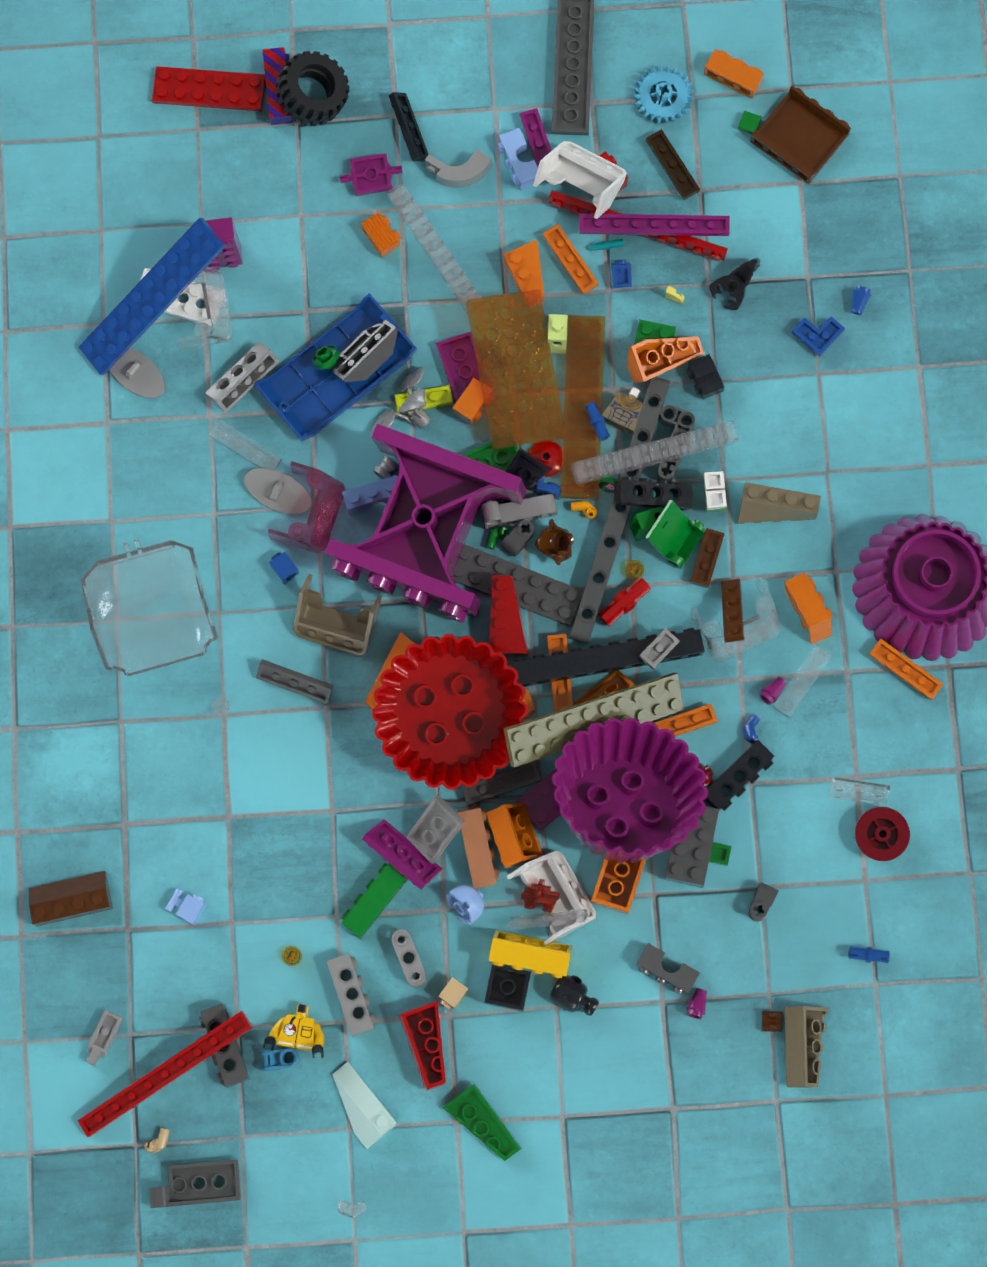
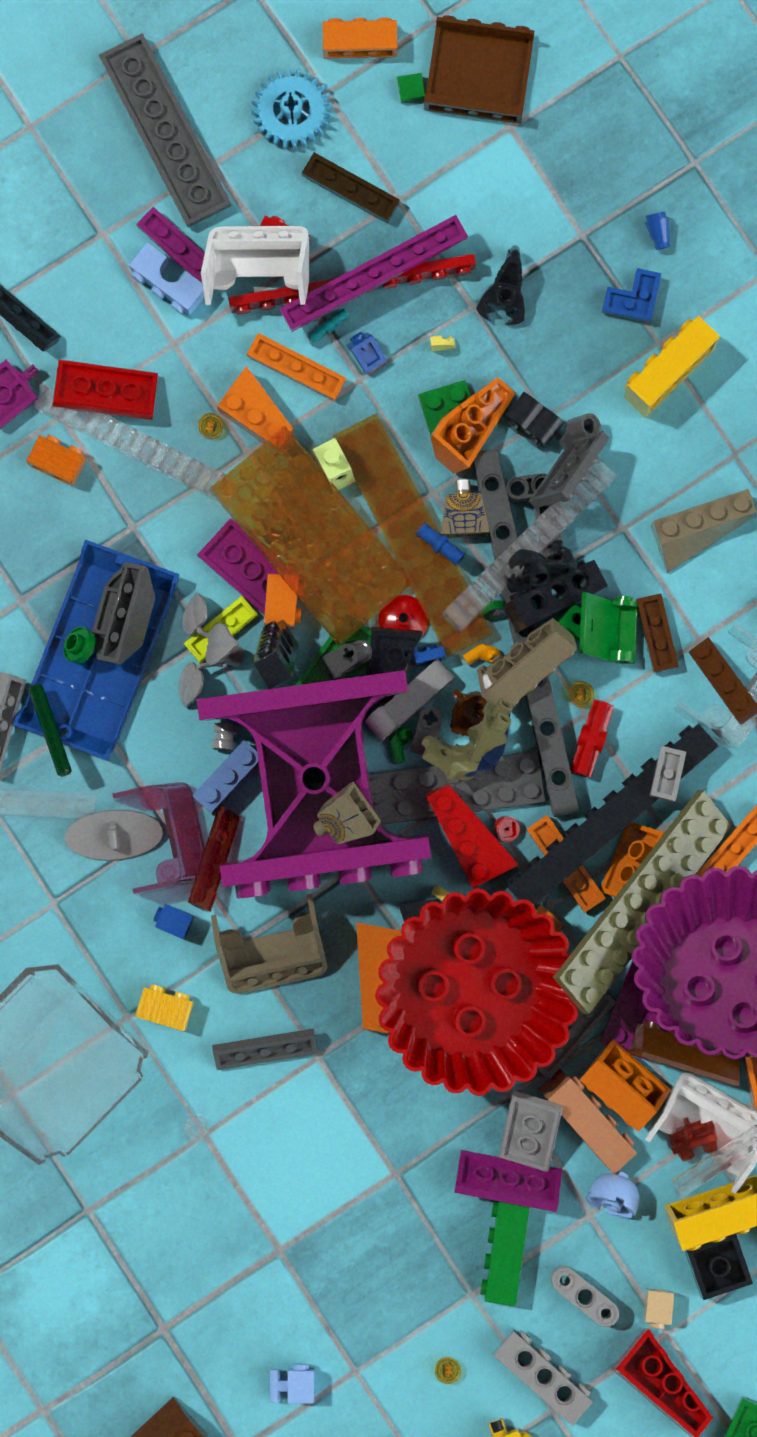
camera: 30 degrees left, 5 degrees up
(245, 619) = (165, 1008): none -> yellow brick
(275, 400) = (50, 730): none -> dark green axle
(342, 532) = (214, 855): none -> clear red plate
(430, 550) = (347, 816): none -> dark tan torso
(438, 206) = (105, 389): none -> red tile
(447, 426) = (276, 653): none -> black brick
(461, 175) = (110, 337): light grey arch -> none
(493, 267) = (210, 426): none -> clear yellow tile
(495, 458) = (347, 658): none -> dark grey piece
(534, 629) = (506, 829): none -> red tile
(552, 562) = (483, 750): none -> olive hips
(556, 828) = (666, 1049): none -> reddish brown slope
(606, 527) = (526, 663): none -> dark tan wedge
(650, 469) = (539, 569): none -> black animal
(714, 491) = (619, 548): white hips -> none
(726, 406) = (581, 445): none -> dark grey hinge
(816, 389) = (671, 366): none -> yellow brick

